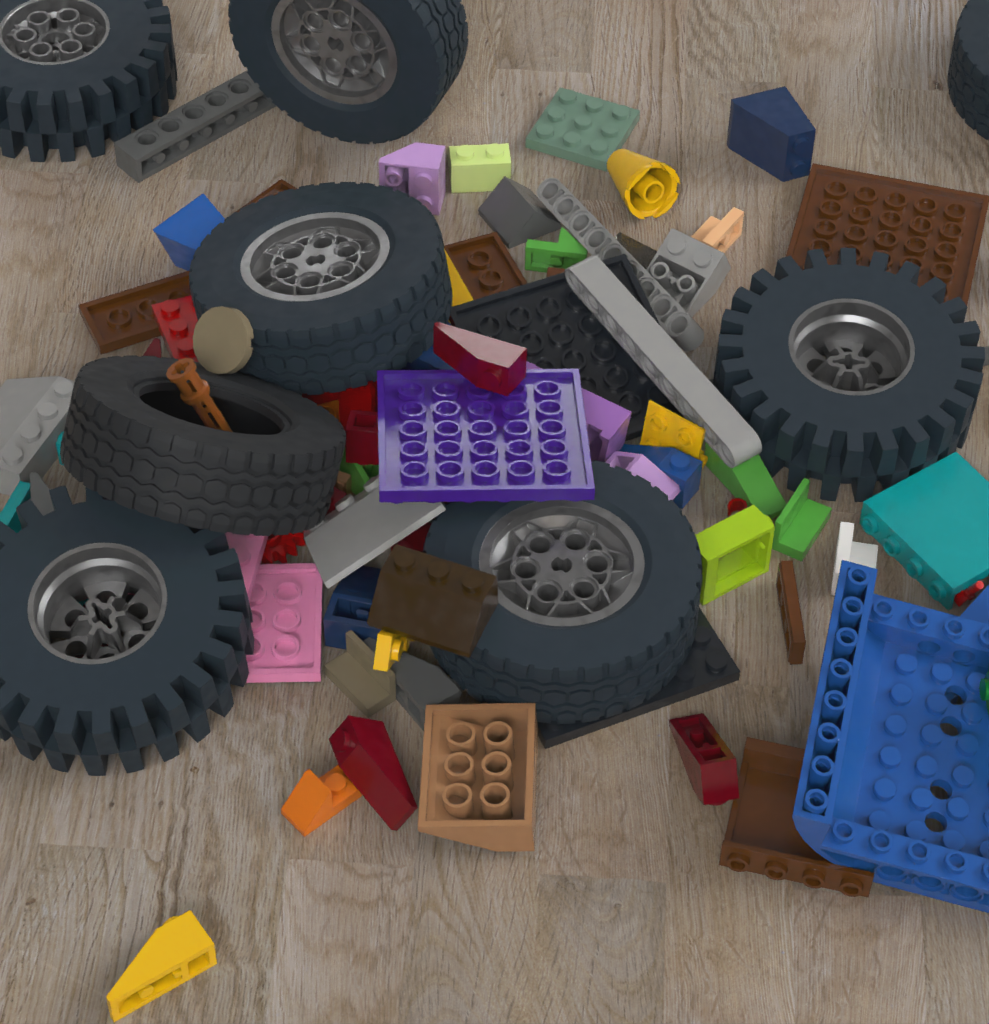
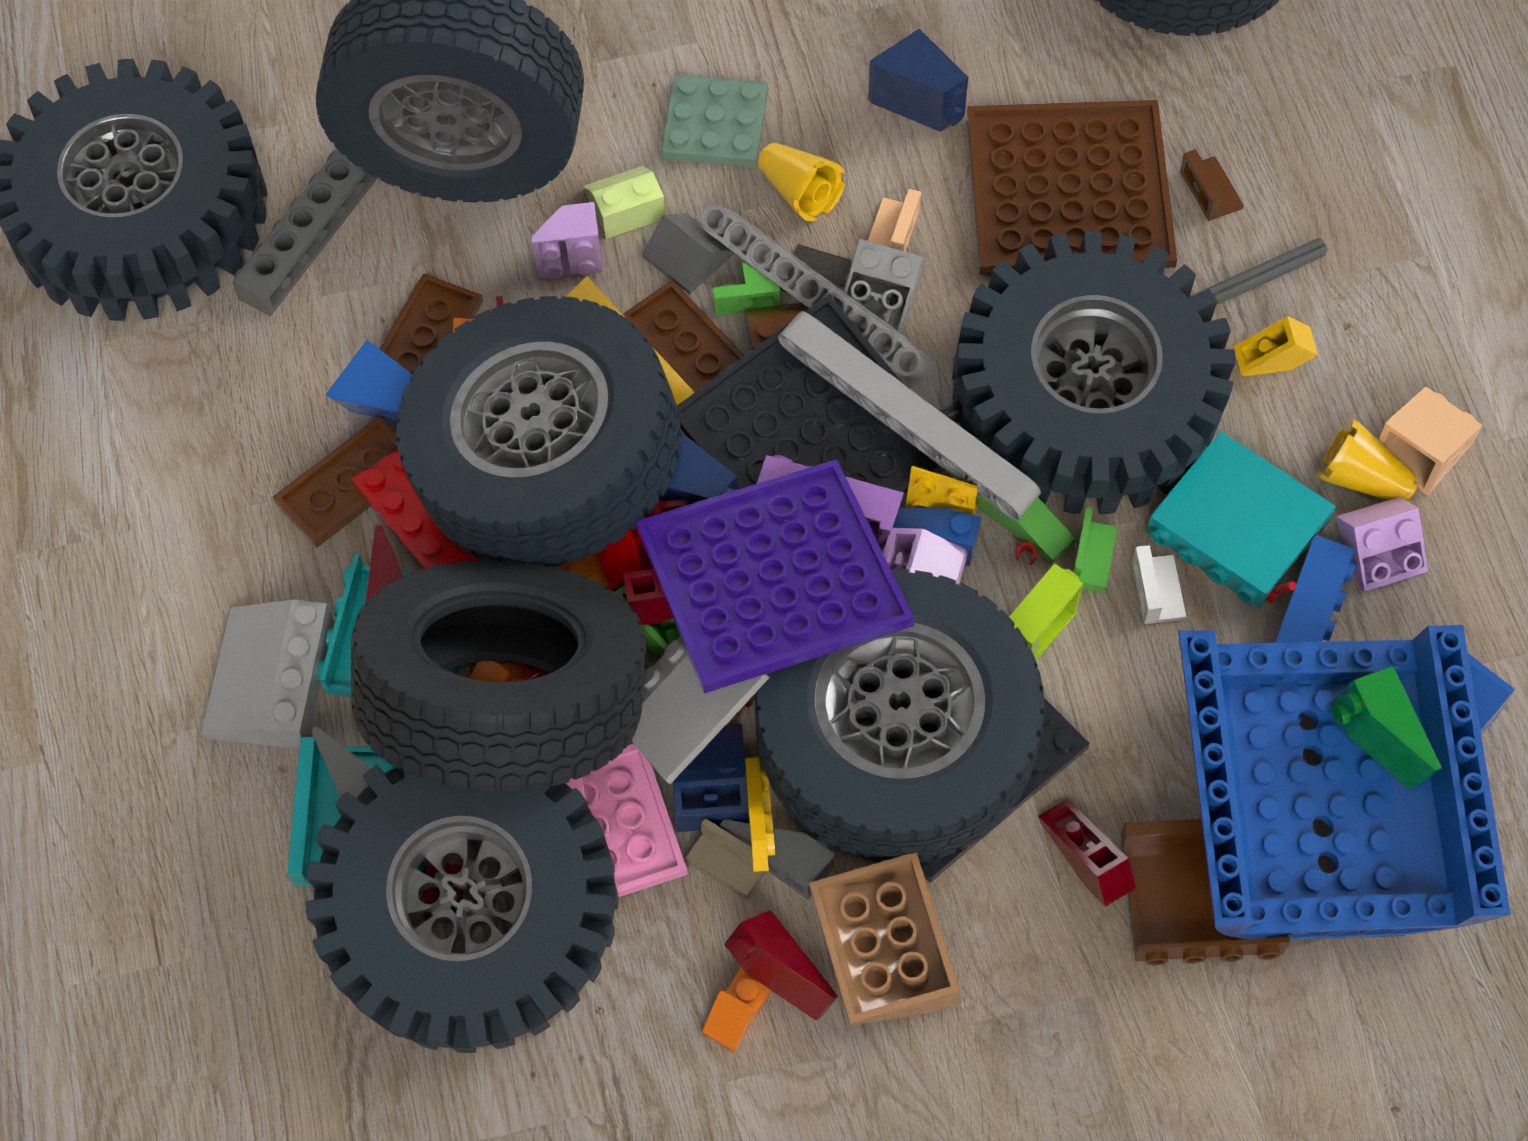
camera: 15 degrees left, 15 degrees up
(198, 398) = (497, 635): dark orange pin -> none
(223, 340) = (473, 541): dark tan tile -> none
(433, 600) = (795, 791): dark brown slope -> none
(481, 359) = (744, 484): dark red slope -> none
(790, 612) = (1117, 661): reddish brown tile -> none

